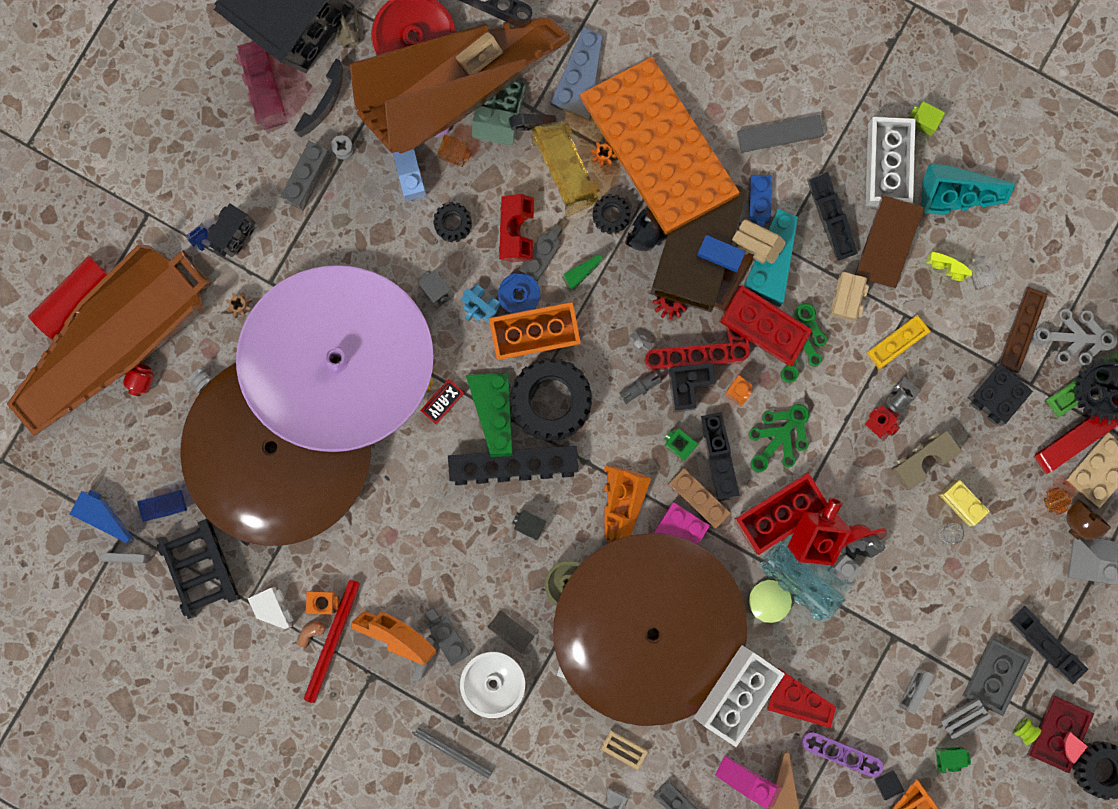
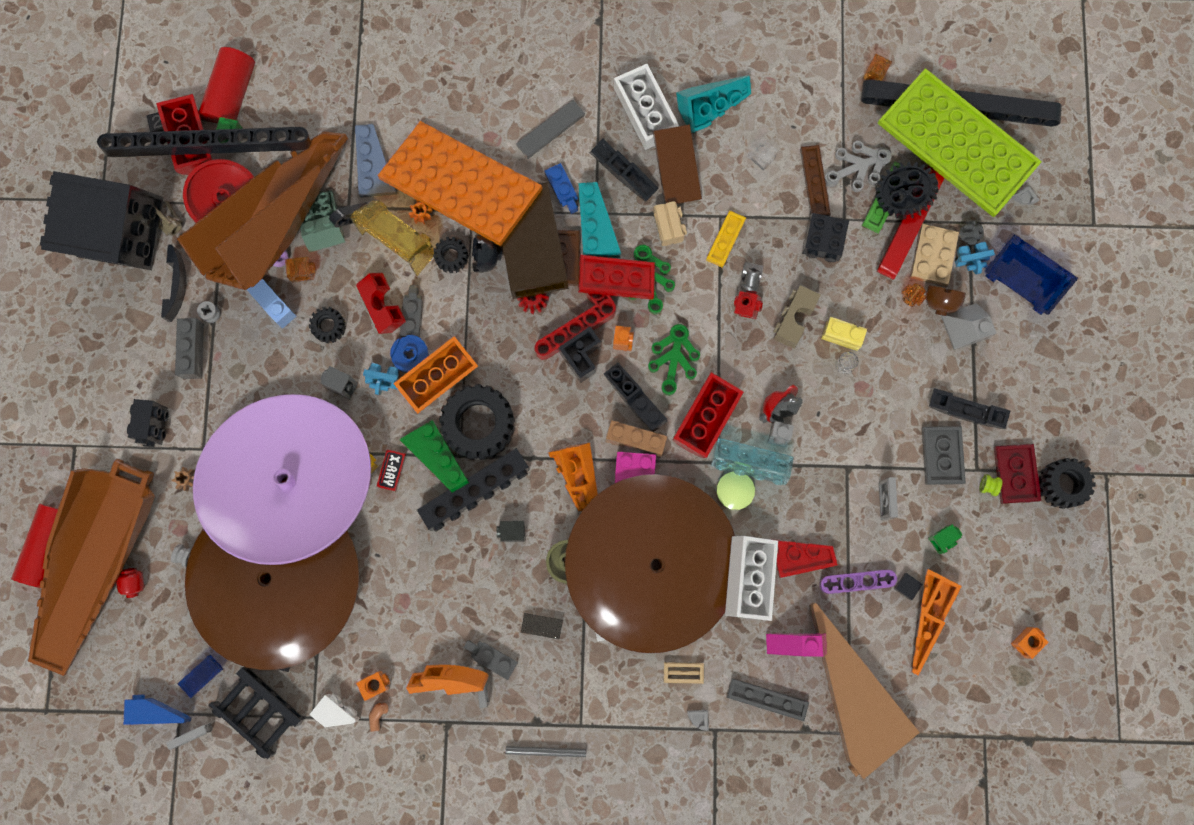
camera: 30 degrees left, 5 degrees down
(197, 235) = (123, 442): clear blue tile -> none
(261, 85) = (118, 296): clear pink wedge -> none
(331, 641) = (398, 713): red axle -> none
(479, 54) = (282, 181): tan slope -> none
(483, 698) = (547, 692): white dish -> none
(578, 274) = (449, 312): green slope -> none
(640, 387) = (544, 376): dark grey pin -> none
(641, 340) = (525, 340): light grey plant -> none
(688, 444) = (605, 400): green brick -> none
(721, 253) = (551, 237): blue tile -> none
(759, 242) = (576, 214): tan brick -> none
(820, 536) = (746, 416): red brick -> none
(926, 117) = (657, 60): lime brick -> none
(954, 268) = (738, 160): neon yellow slope -> none
(954, 734) = (945, 503): light grey tile -> none
(1073, 747) = (1033, 478): coral tile -> none

